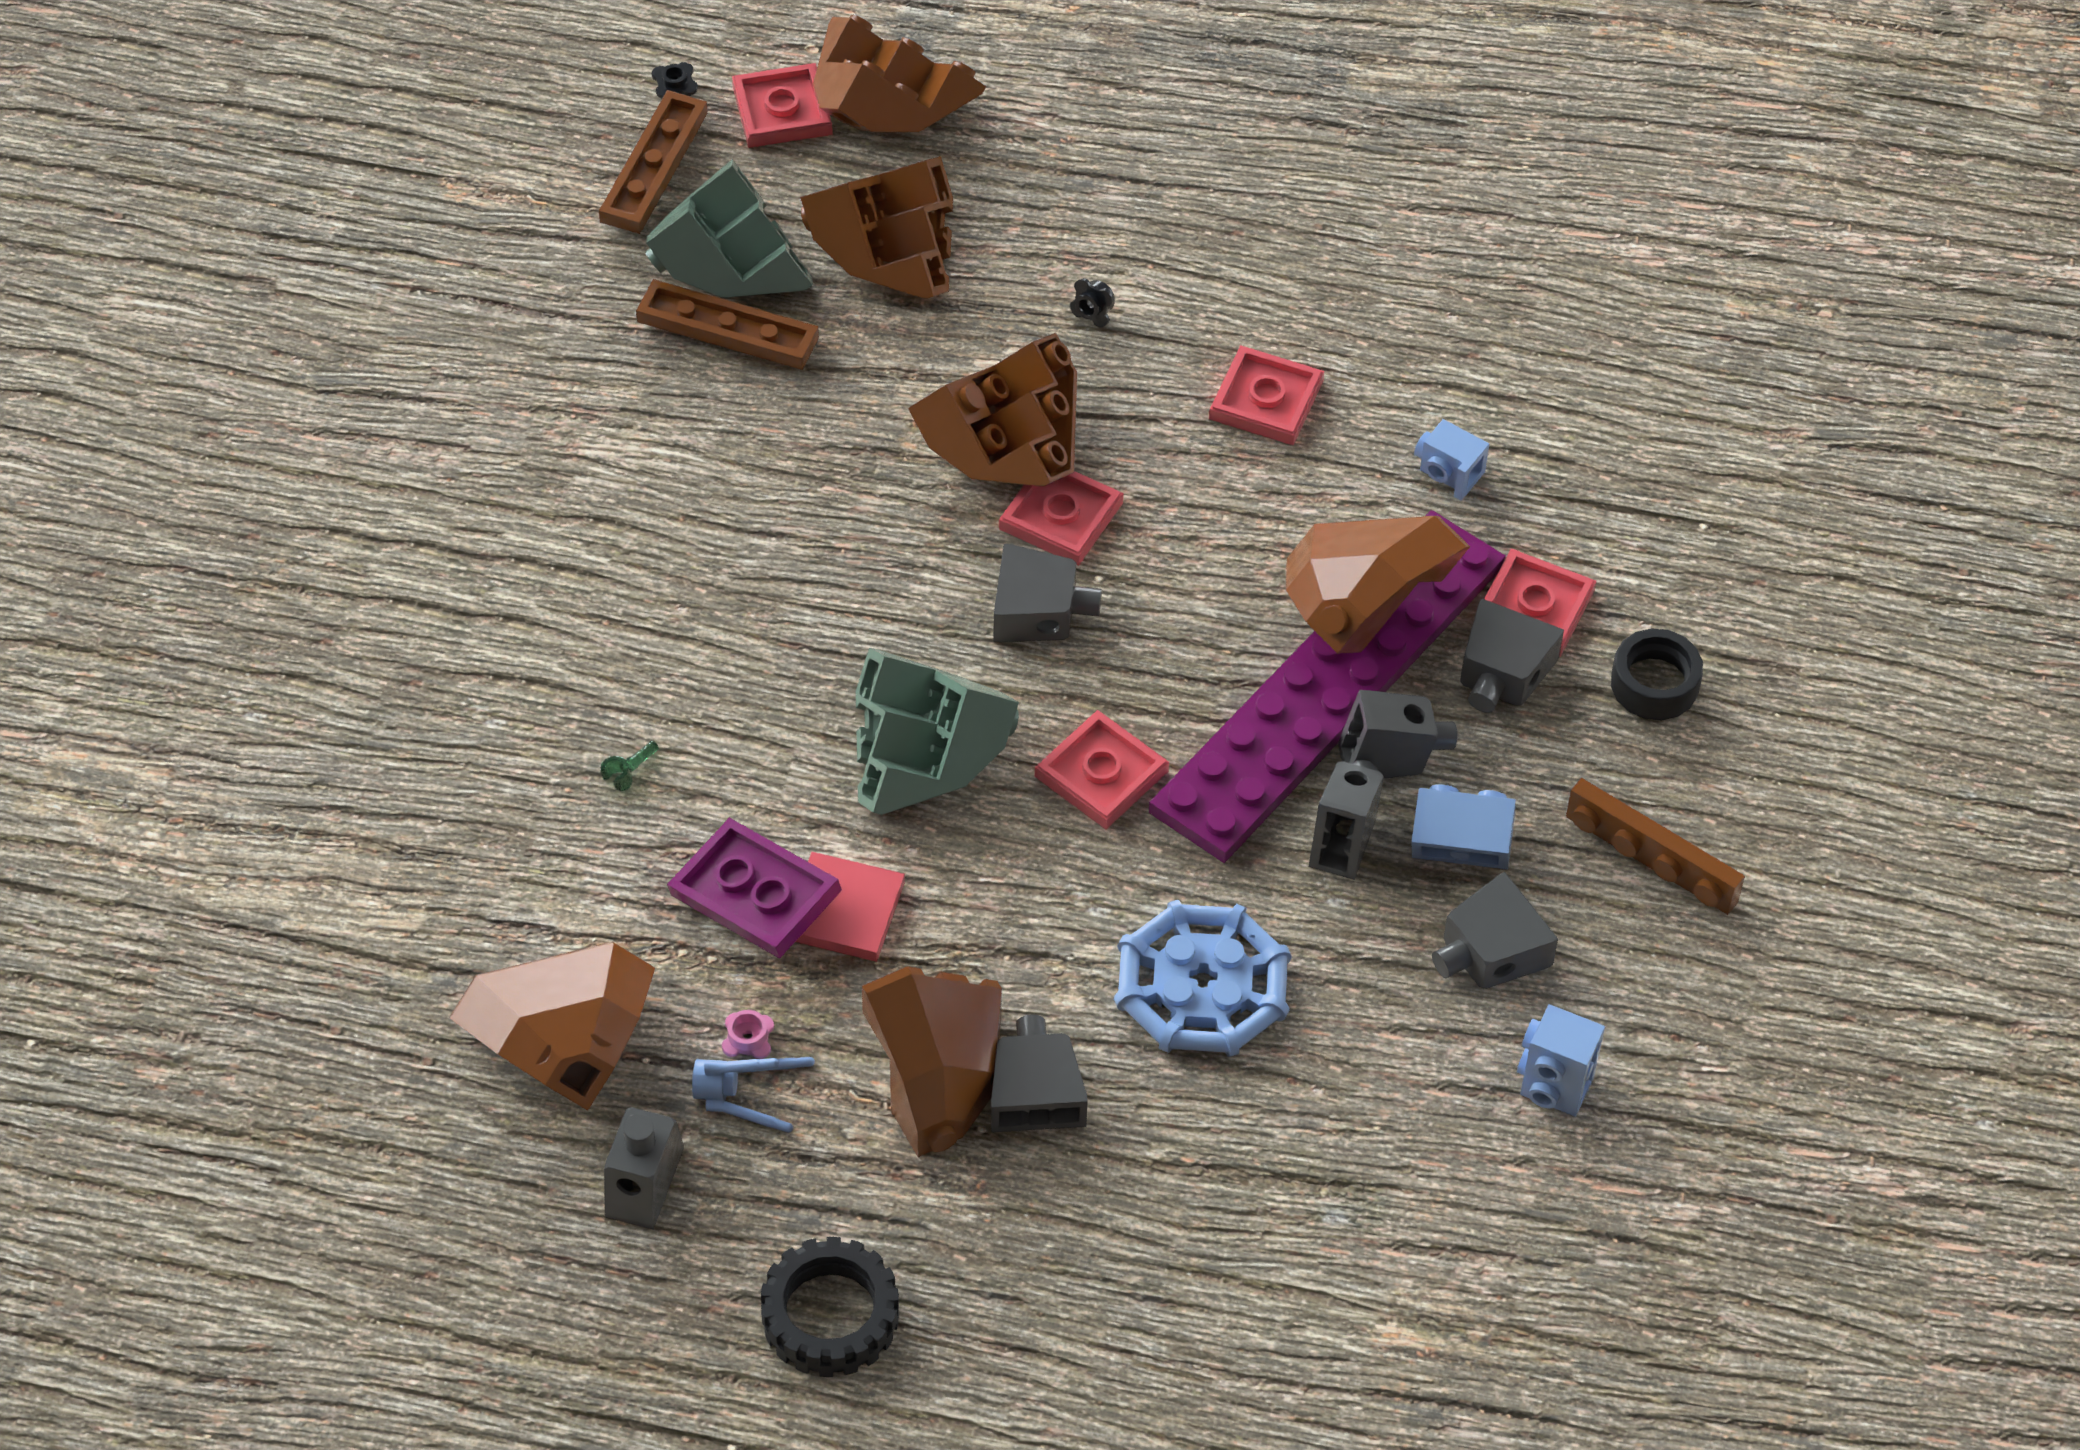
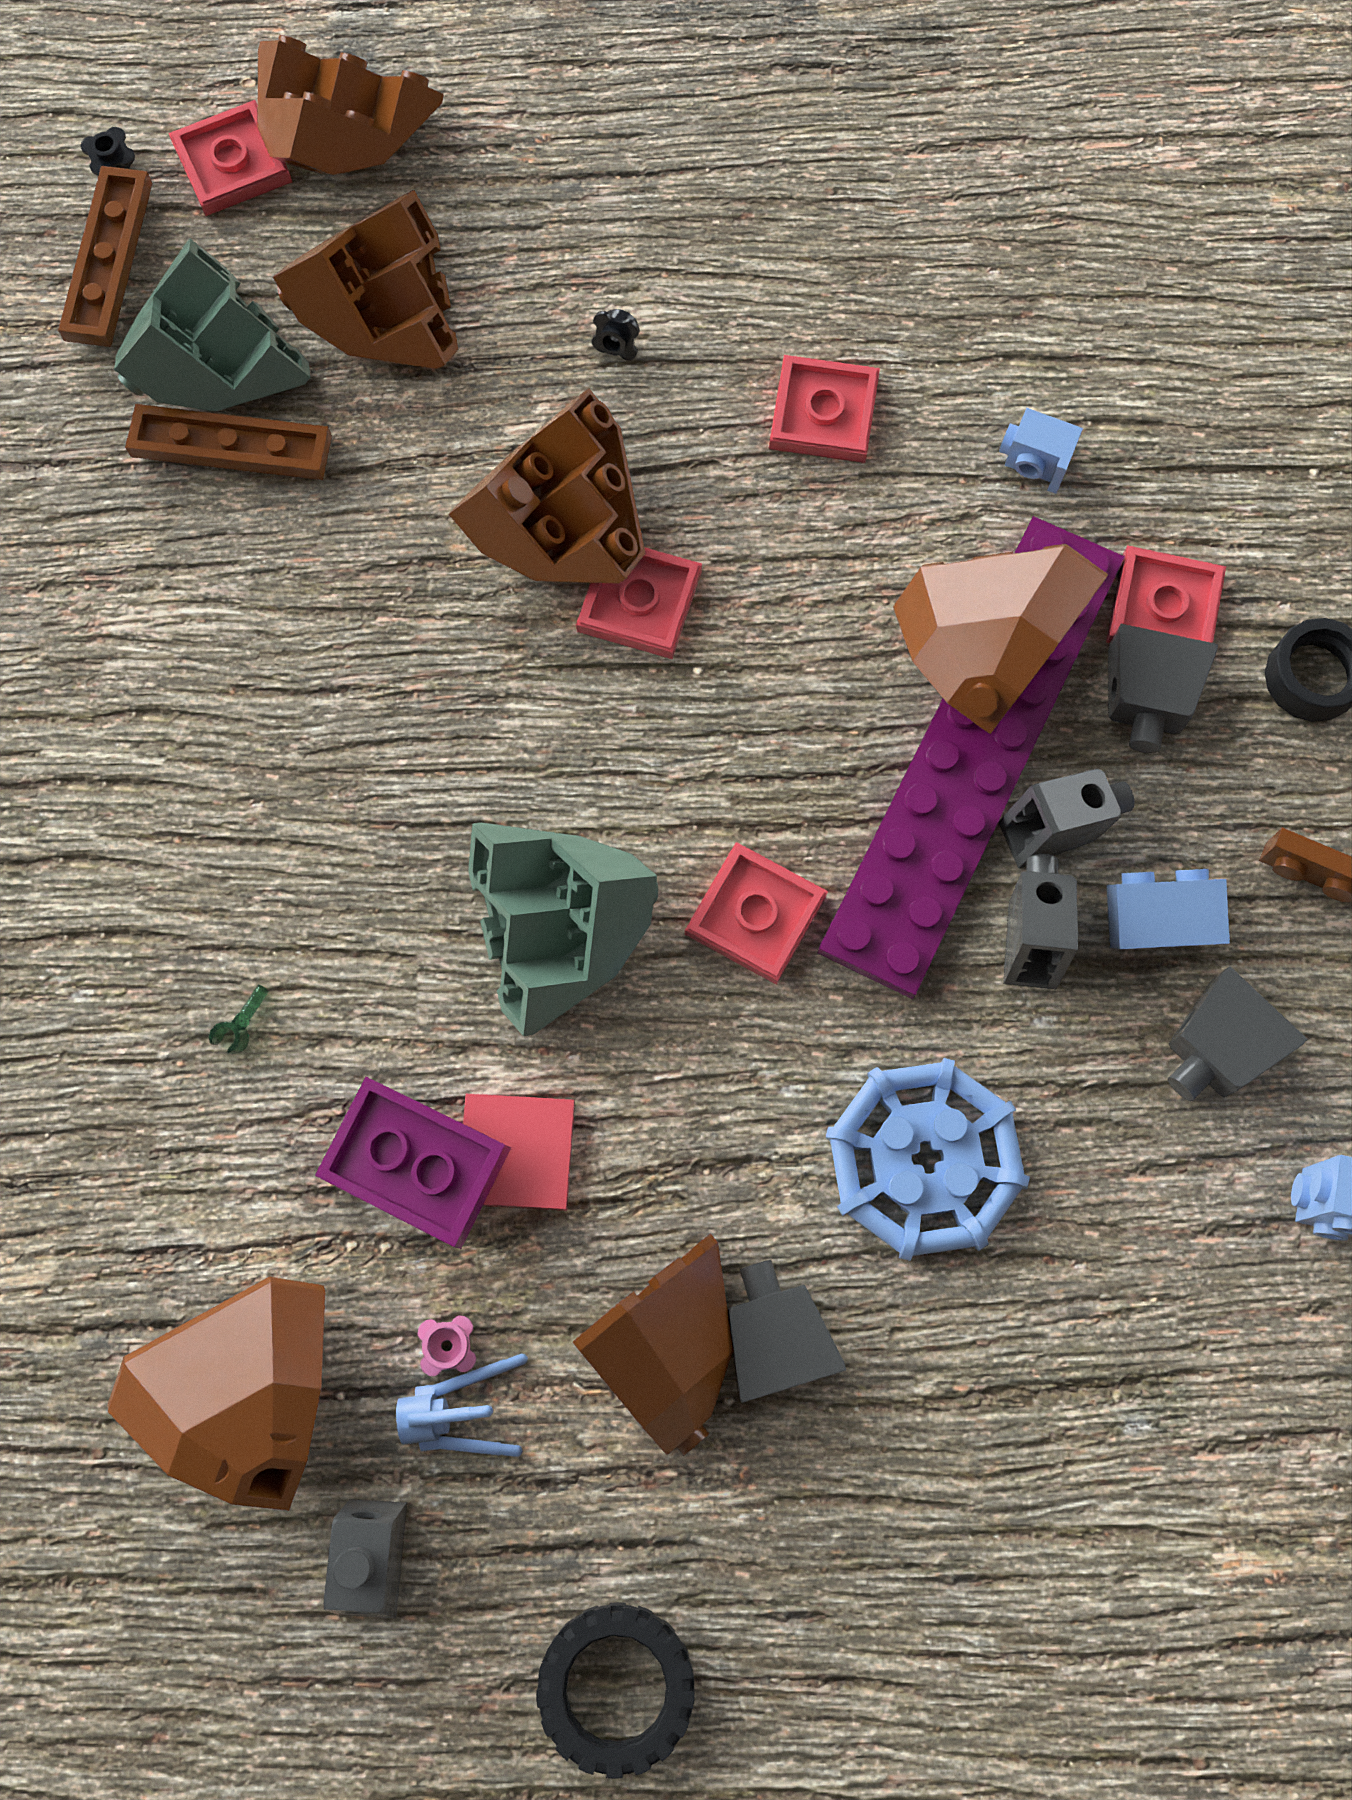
camera: 10 degrees left, 20 degrees up
(1039, 596) = (642, 714): dark grey torso -> none

